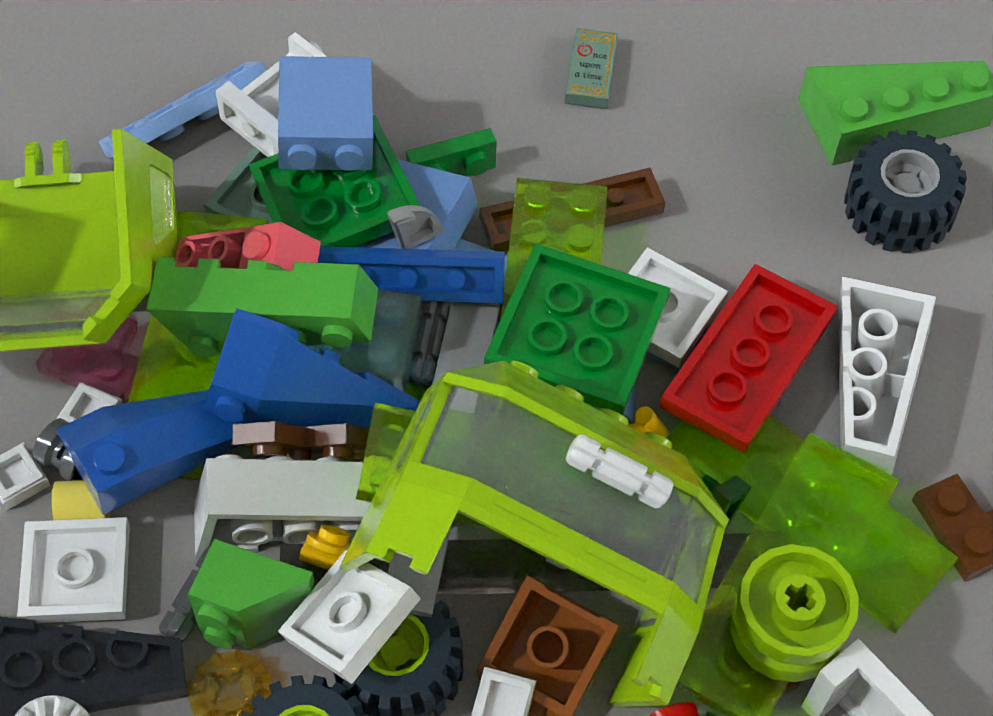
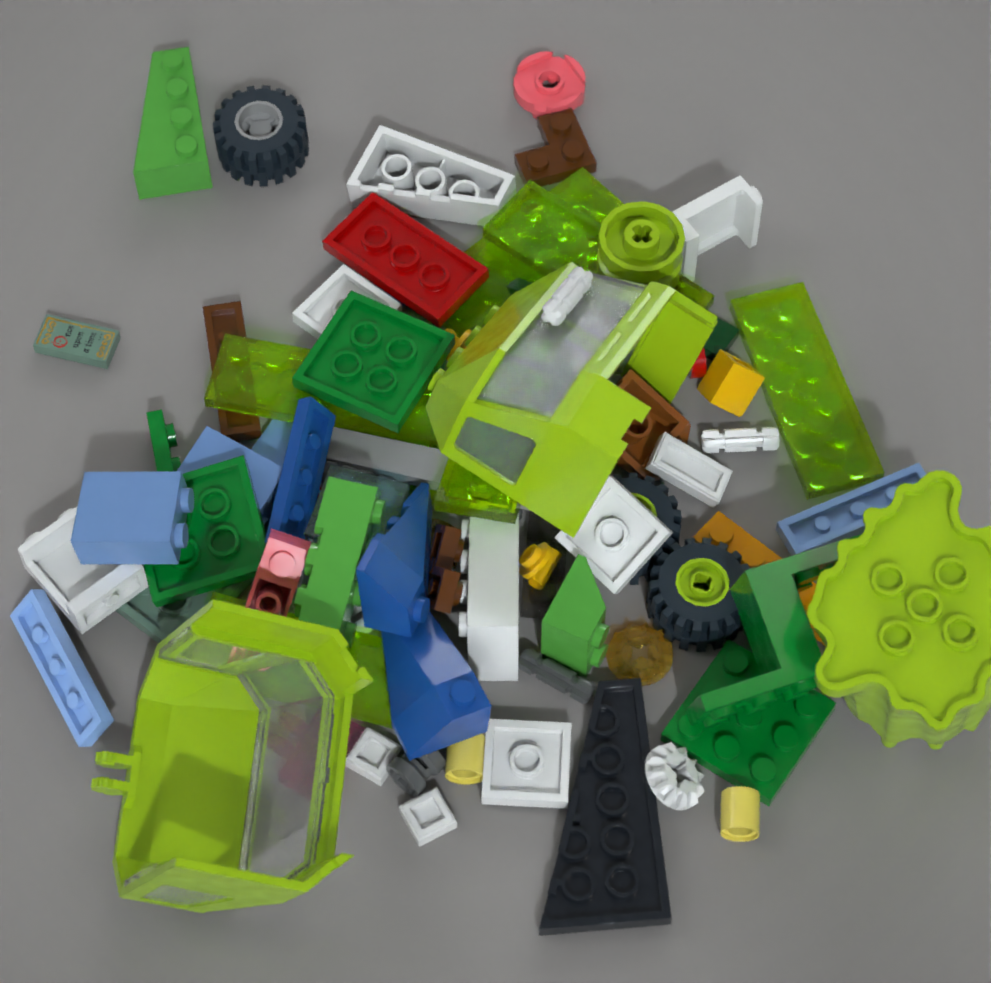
camera: 80 degrees left, 0 degrees up
(414, 225) = (258, 467): light grey tile -> none

